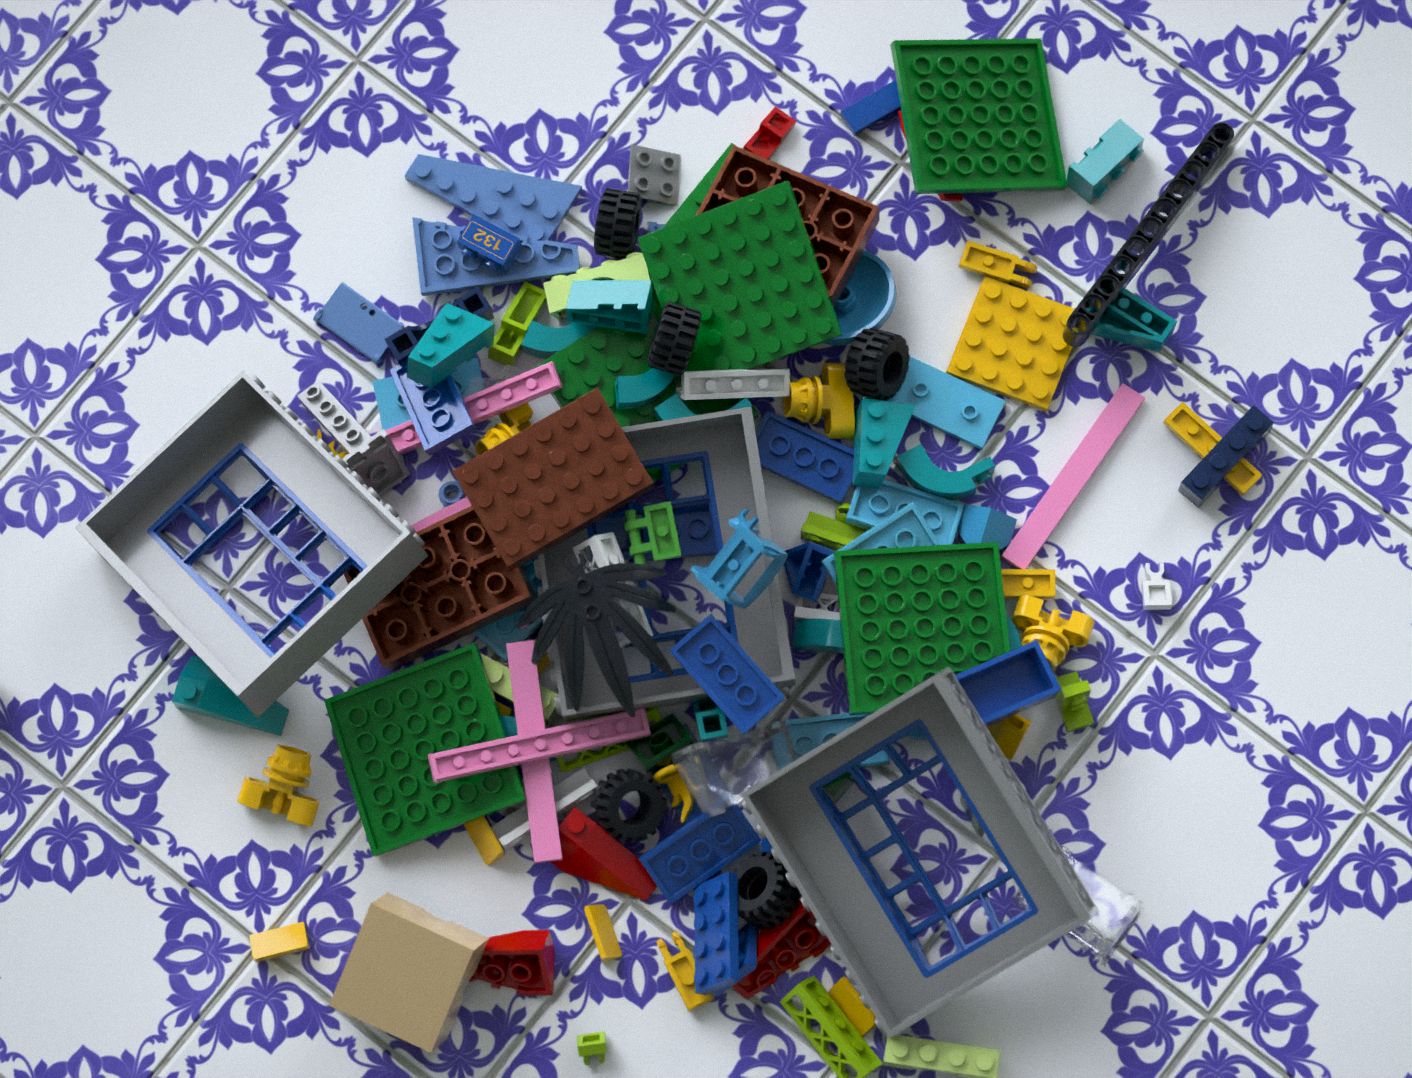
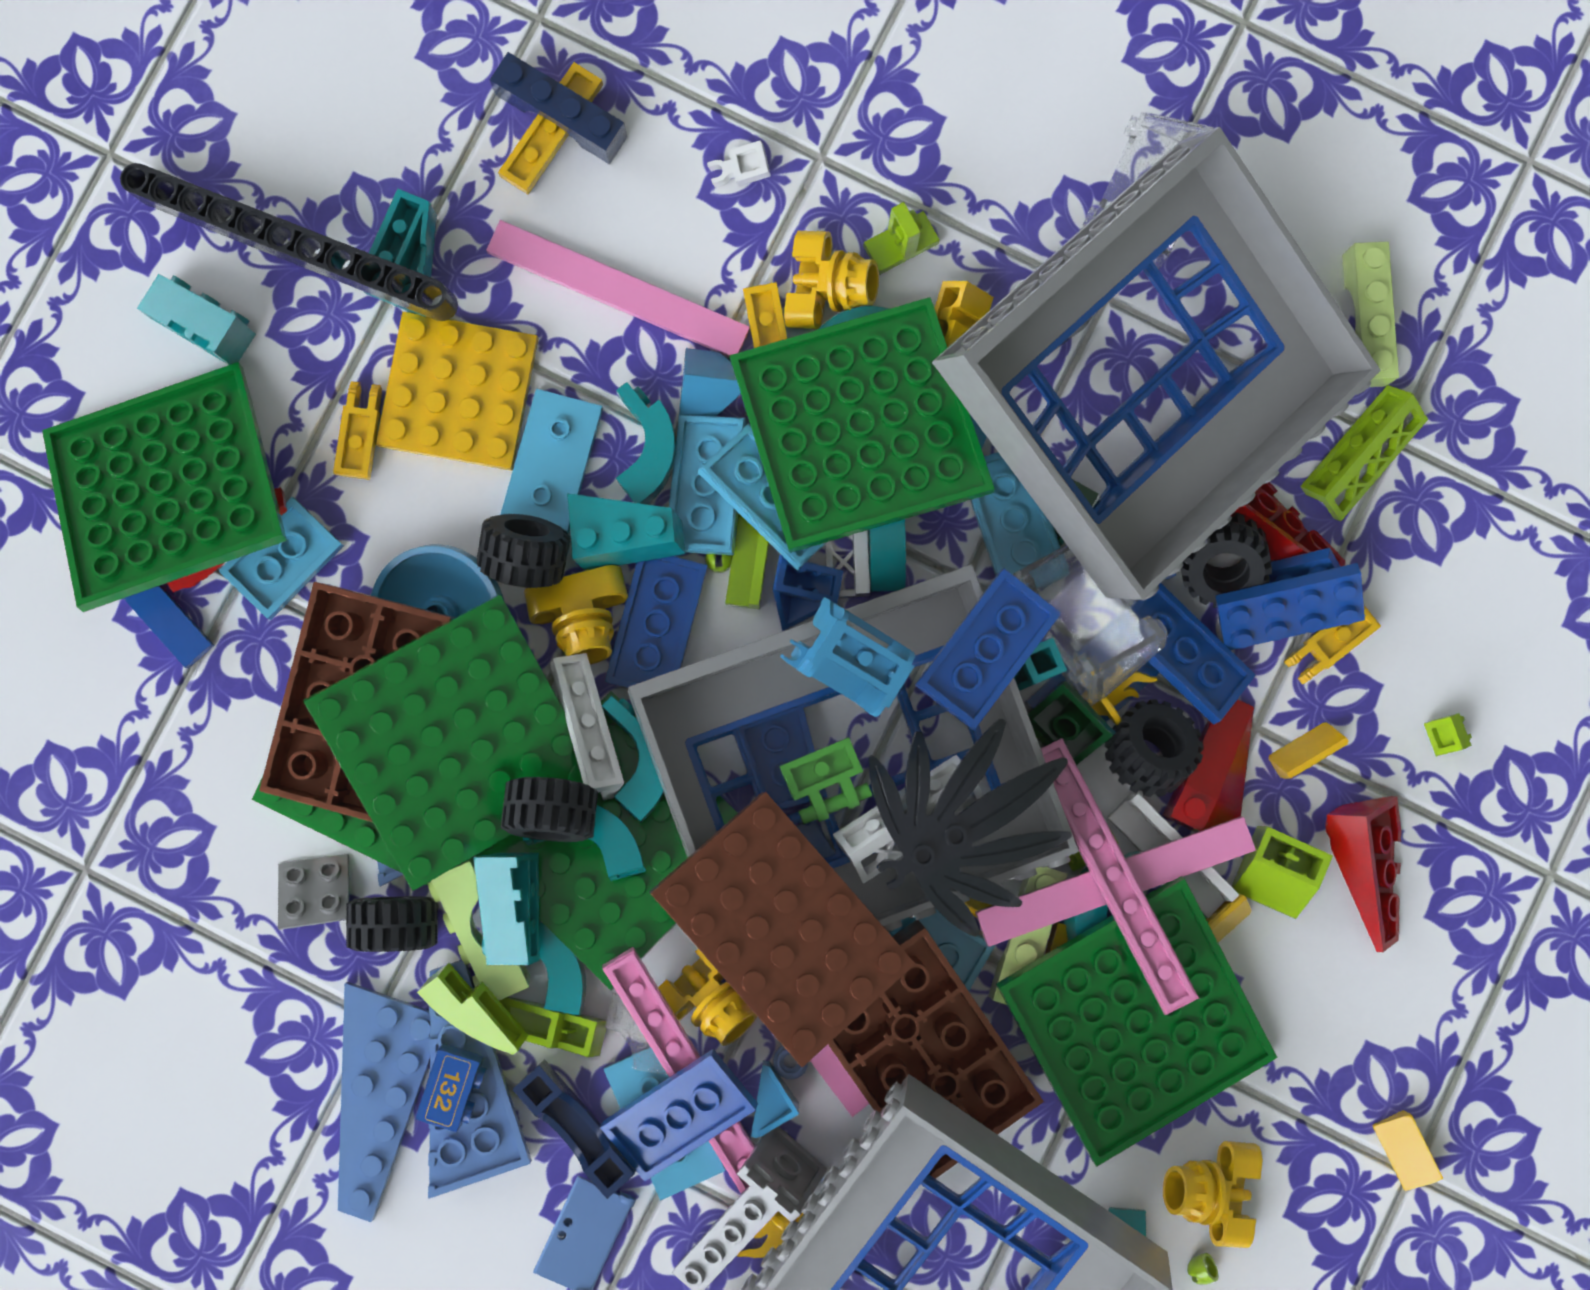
camera: 110 degrees left, 10 degrees up
(224, 772) = (1203, 1269): none -> lime hinge
(408, 972) = (1433, 978): tan tile -> none
(426, 473) = (774, 1102): none -> dark azure slope
(447, 344) = (603, 1113): teal wedge -> none
(514, 887) = (1281, 872): none -> lime slope
(541, 269) = (472, 1010): none -> lime slope
(770, 134) = (232, 752): red slope -> none
(850, 1003) = (1316, 448): yellow slope -> none
(895, 188) = (279, 572): none -> medium azure plate
(1010, 683) = (918, 303): blue piece -> none

